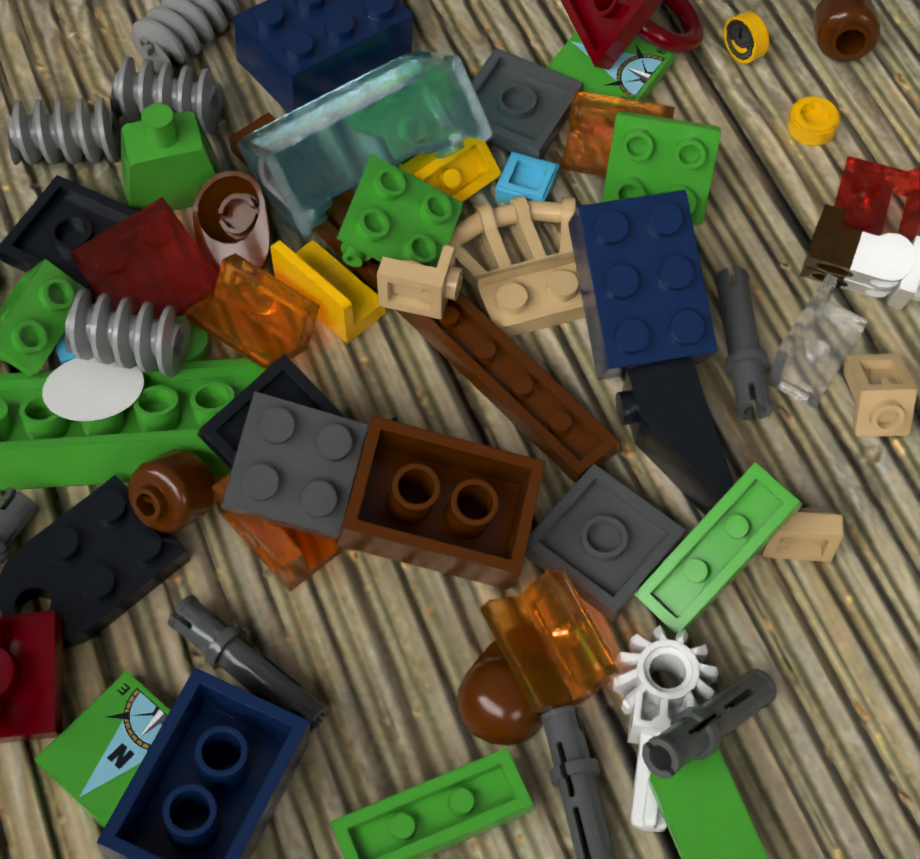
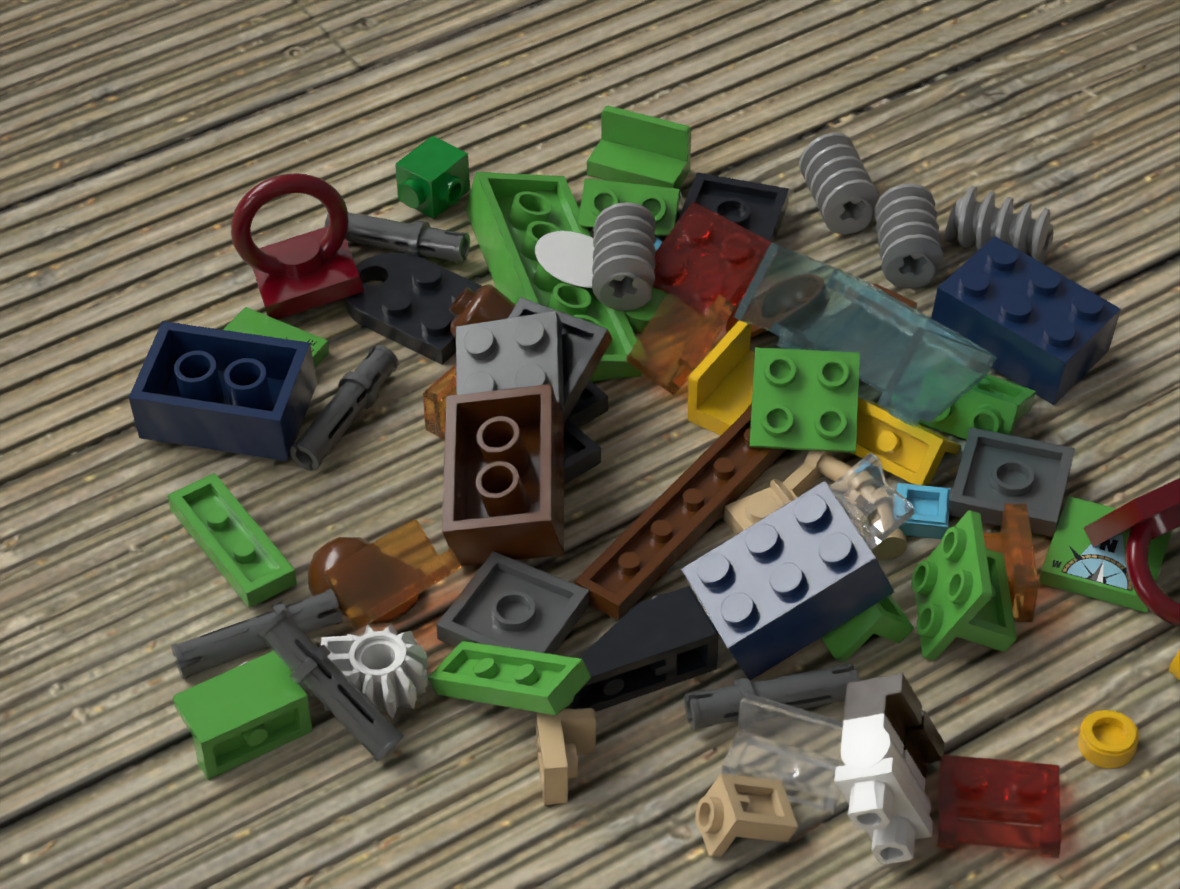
camera: 80 degrees right, 15 degrees down
(165, 158) = (824, 231): bright green torso -> none
(418, 287) = (738, 433): tan bracket -> none
(547, 205) = (870, 501): none -> clear panel

